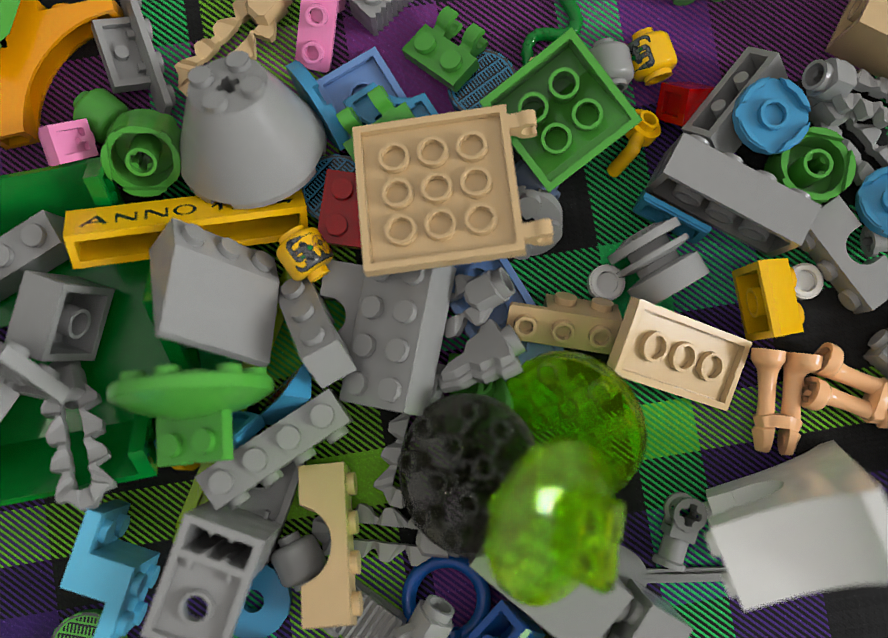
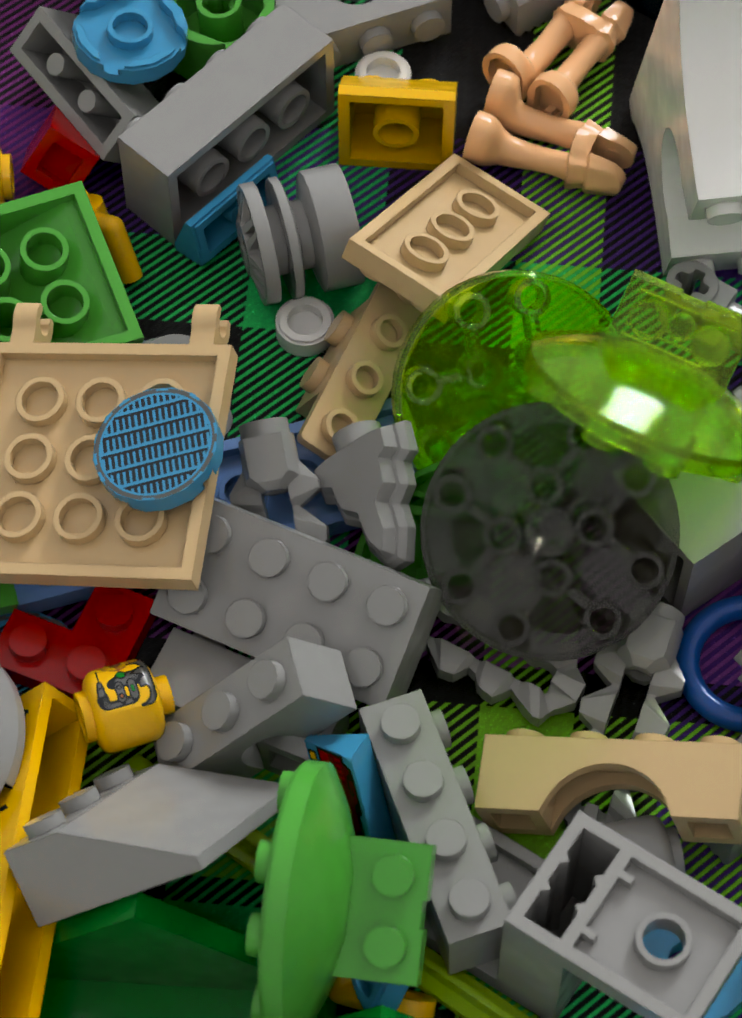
camera: 70 degrees left, 25 degrees down
(442, 226) = (158, 449): none -> tile

